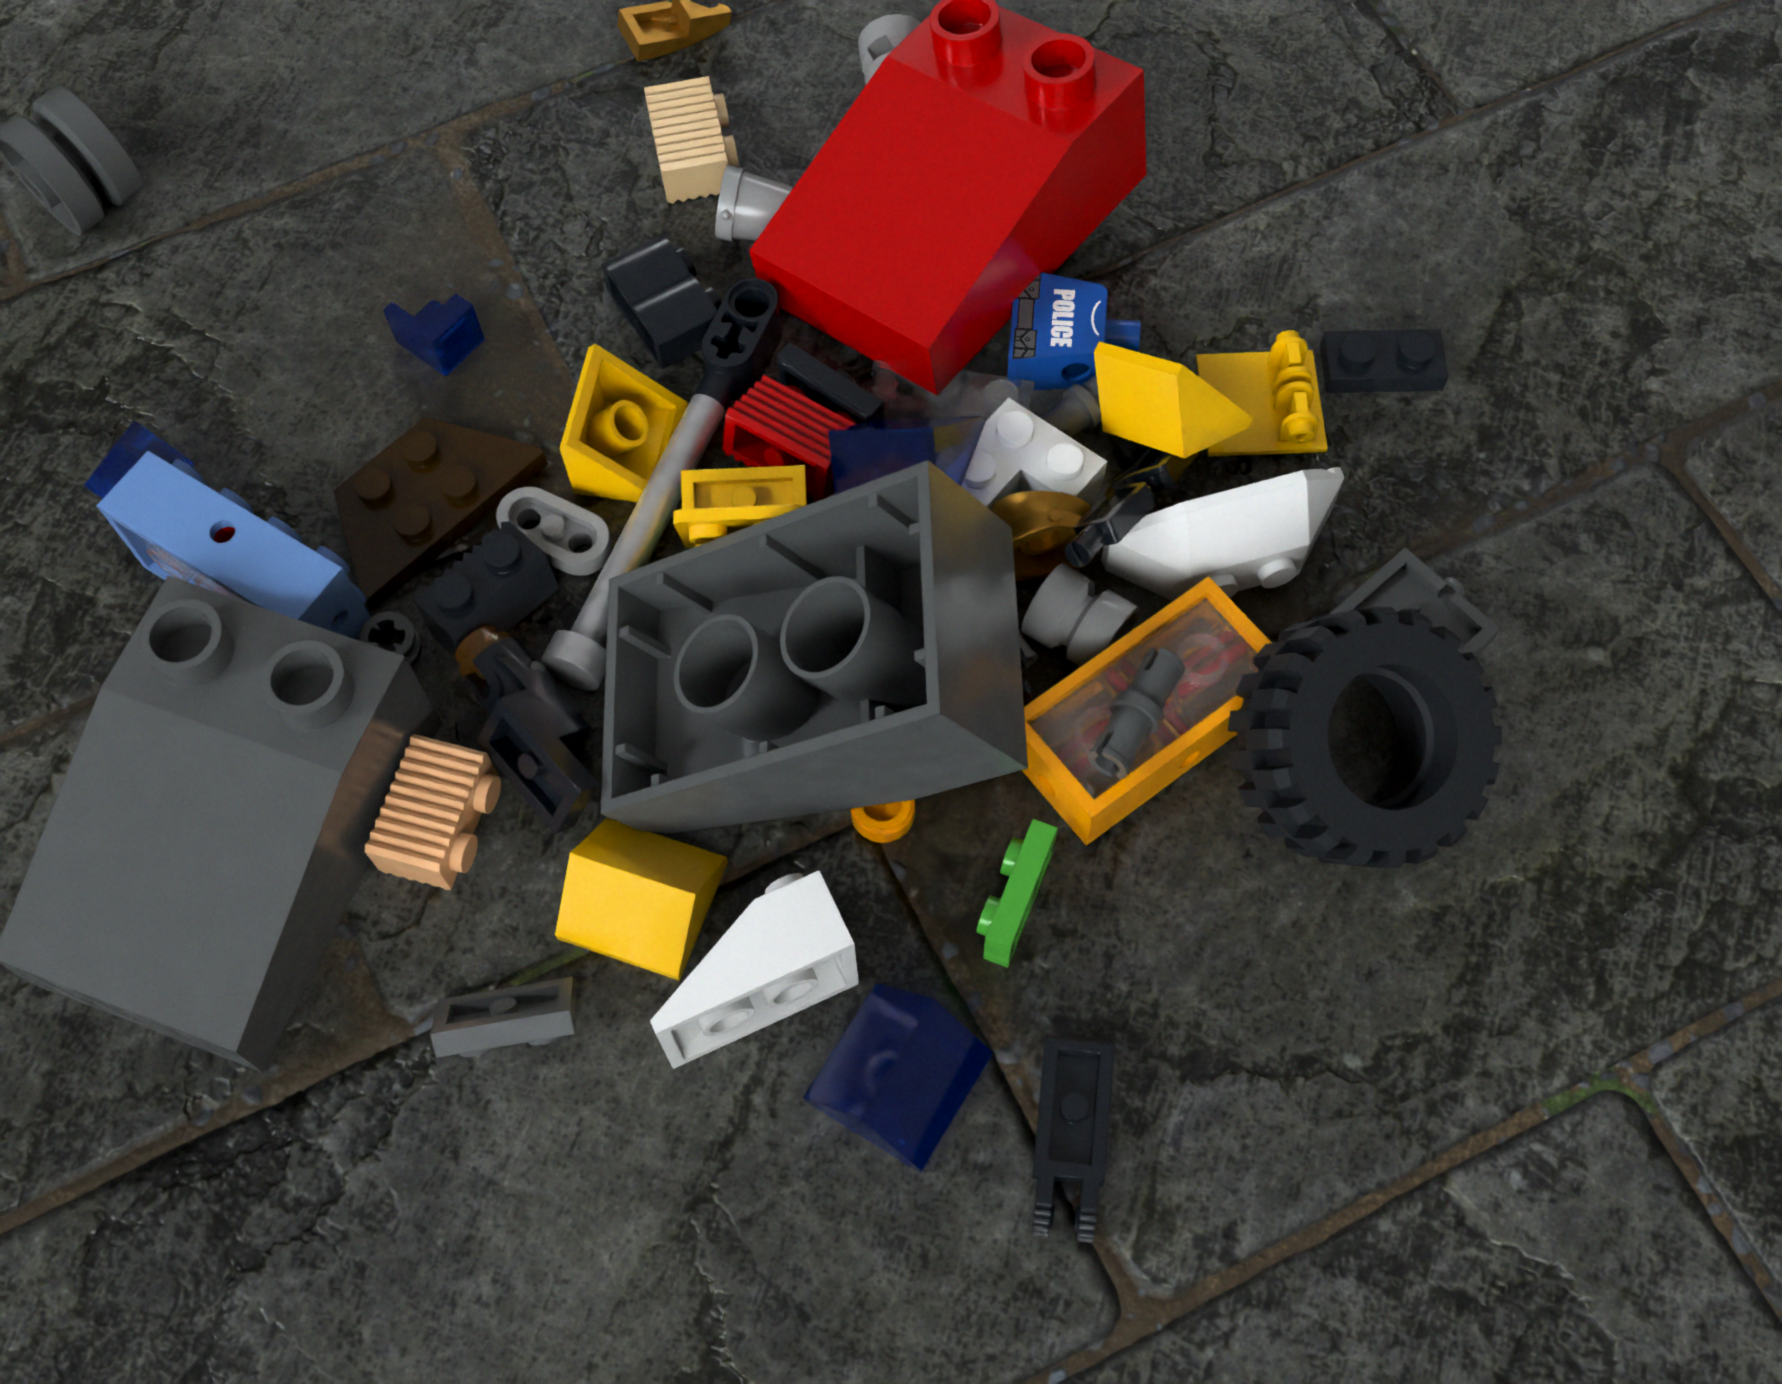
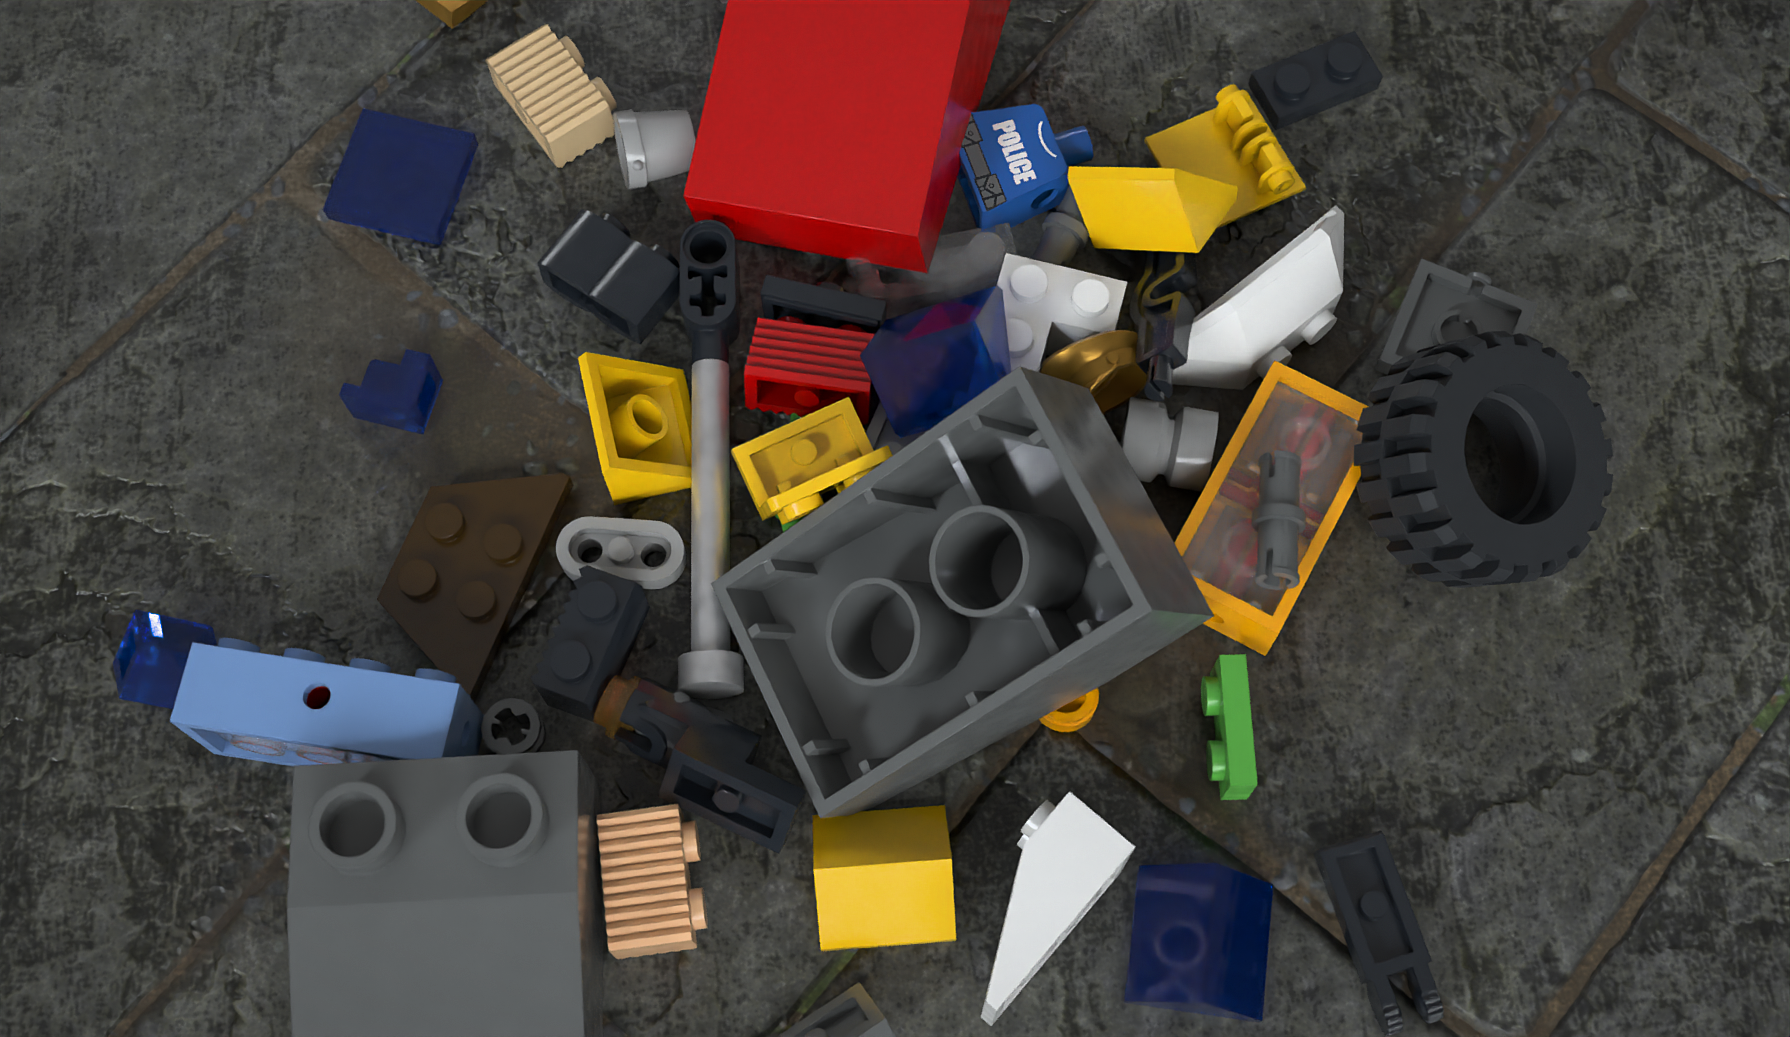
camera: 25 degrees left, 5 degrees up
(533, 163) = (401, 176): none -> clear blue tile

